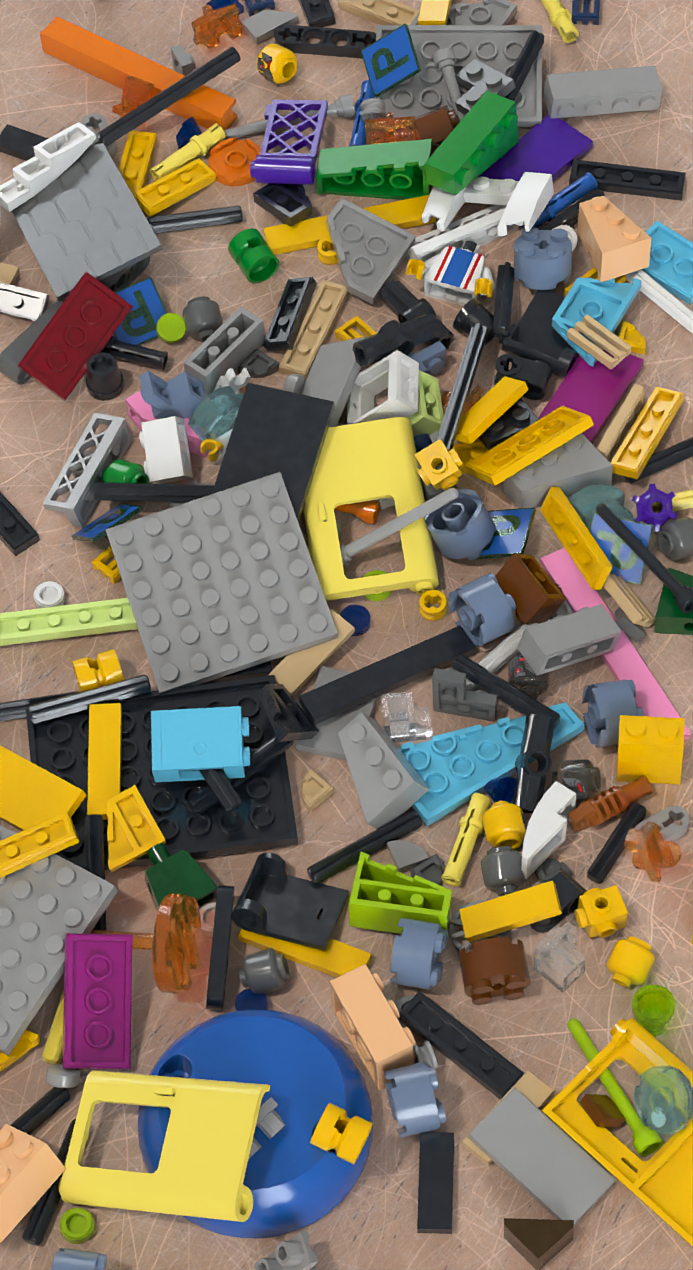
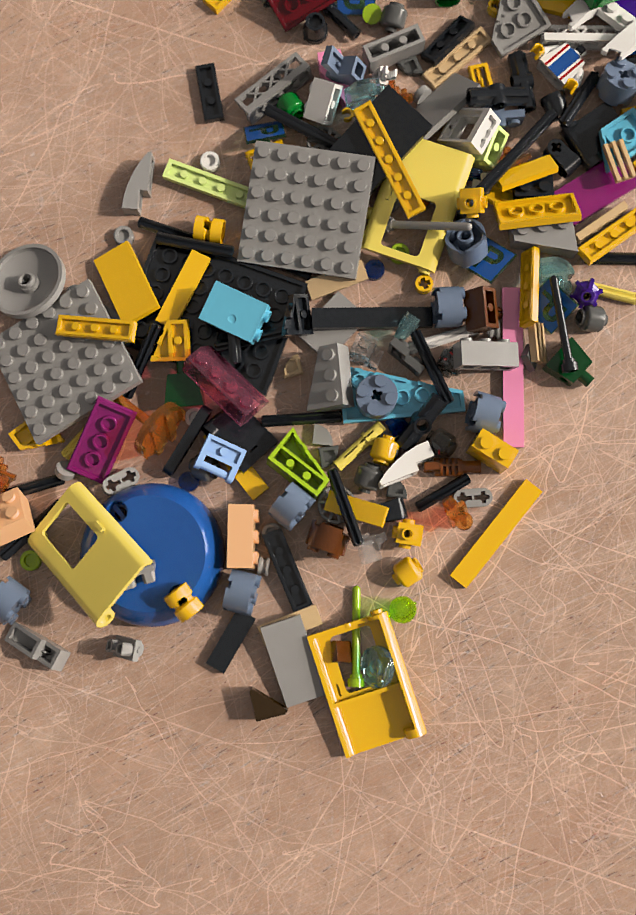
camera: 30 degrees right, 25 degrees up
(148, 1045) = (118, 477): none -> light grey beam
(233, 843) = (224, 384): none -> clear pink slope
(282, 927) = (223, 452): none -> light blue plate
(301, 468) = (389, 159): none -> yellow tile
(442, 653) = (407, 325): none -> clear light blue cone
(453, 759) = (380, 386): none -> sand blue brick
(495, 913) = (345, 507): none -> black axle

